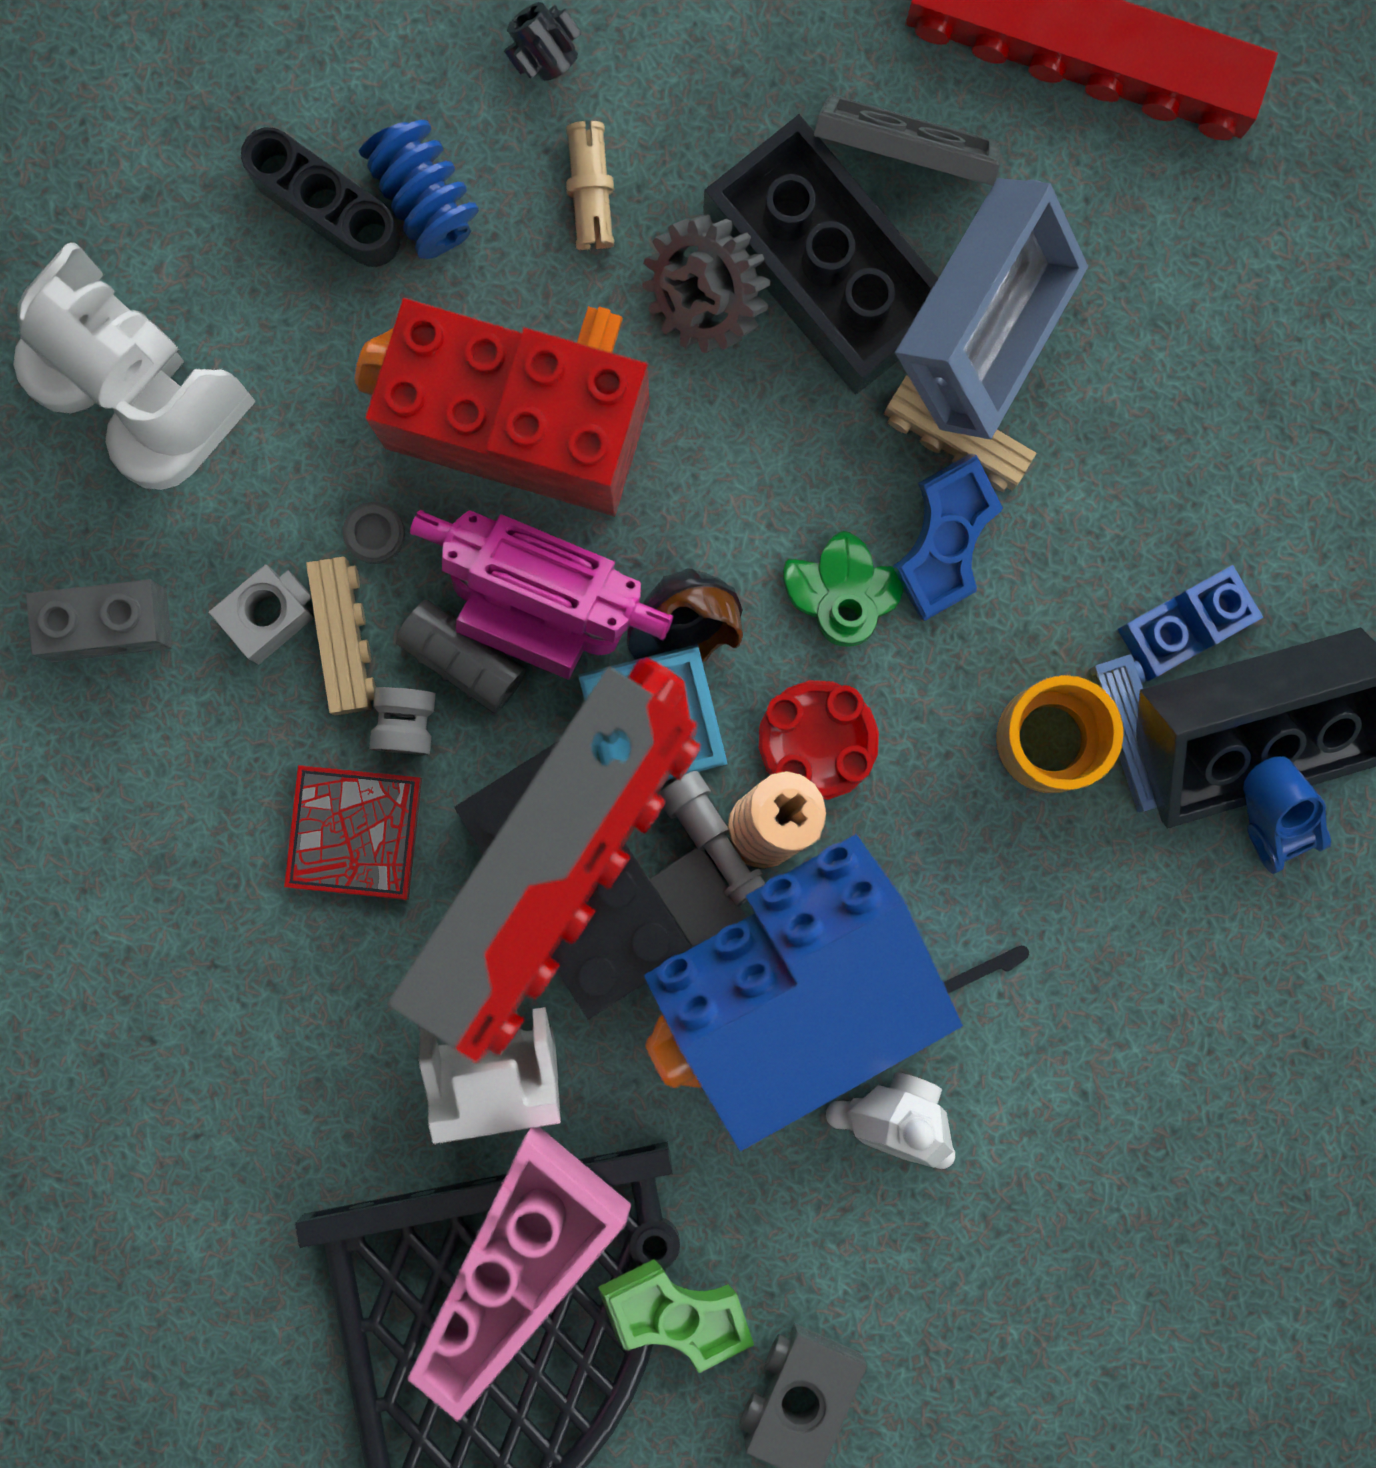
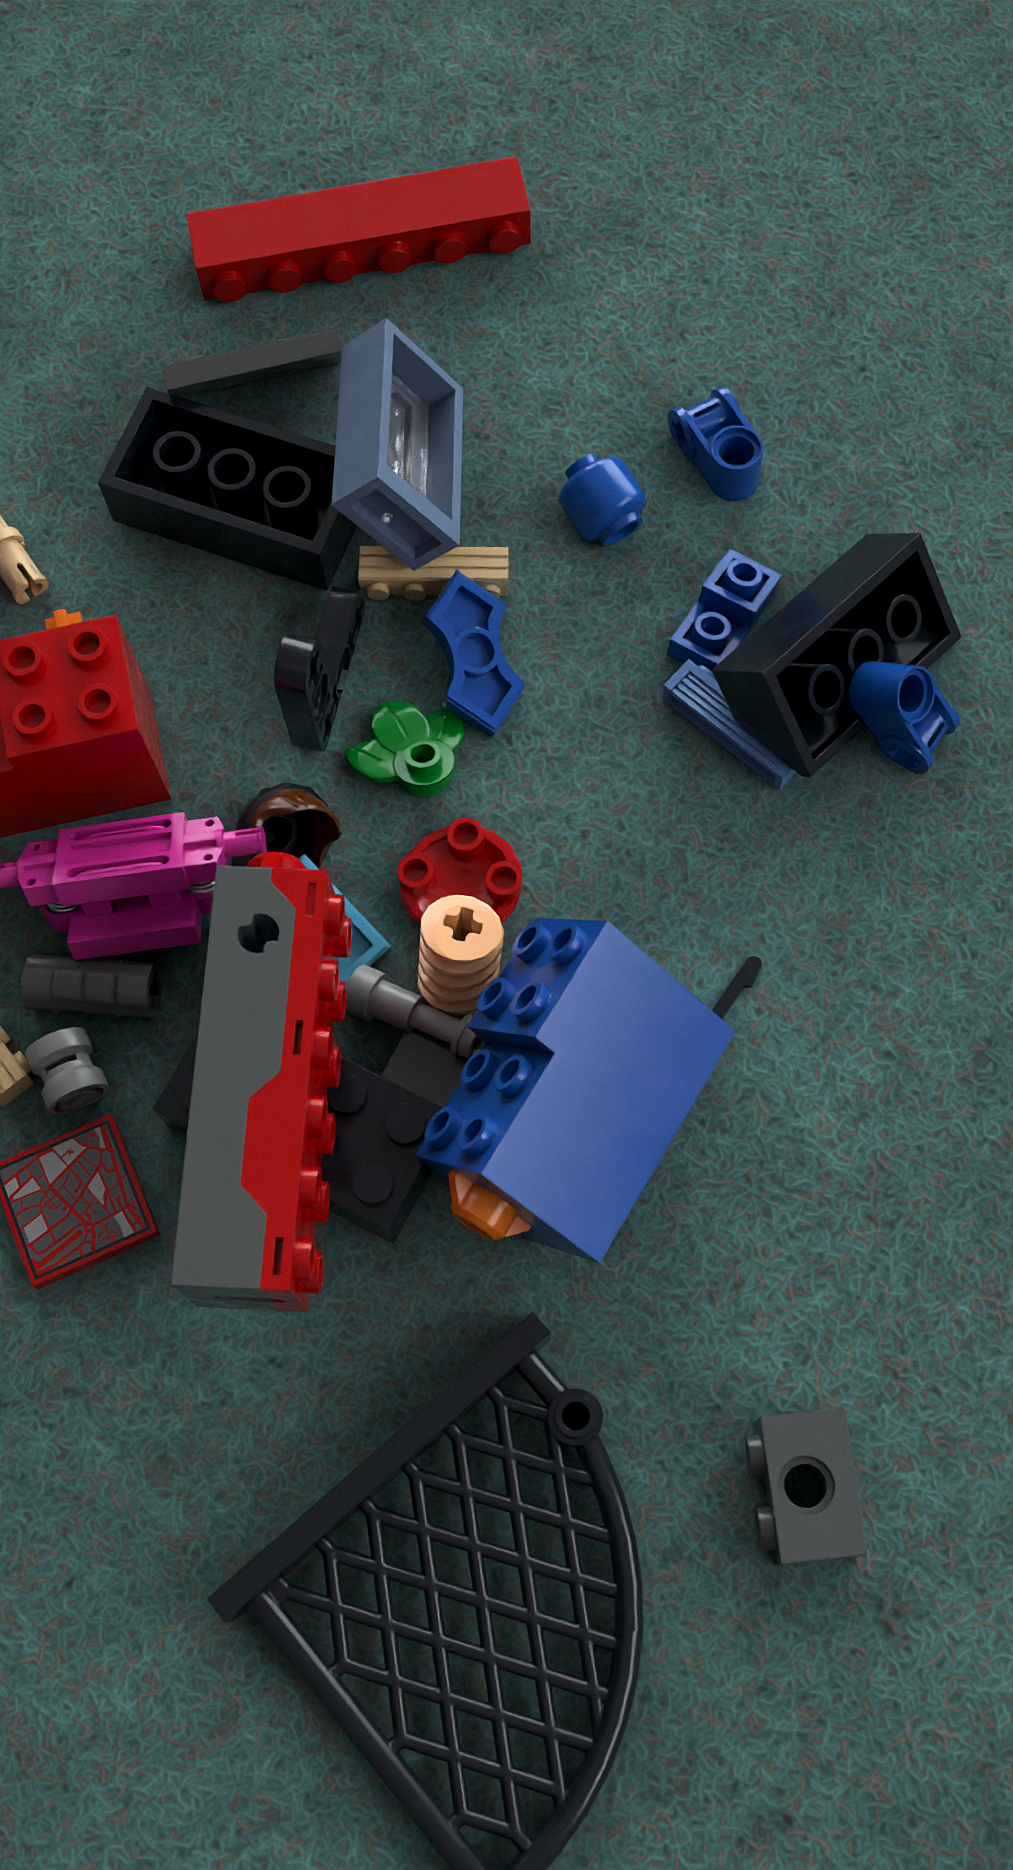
camera: 20 degrees left, 15 degrees down
(496, 1092) = (326, 1344): white panel -> none
(528, 1255) = (449, 1488): bright pink wedge -> none
(653, 1310) = (606, 1475): bright green tile -> none
(706, 283) = (146, 535): dark grey gear -> none
(794, 492) = (310, 669): none -> black beam
(899, 1121) = (736, 1167): white rock -> none
(1097, 721) = (673, 715): light orange piece -> none
(1148, 452) = (602, 499): none -> blue head
(1291, 445) = (715, 437): none -> blue piece

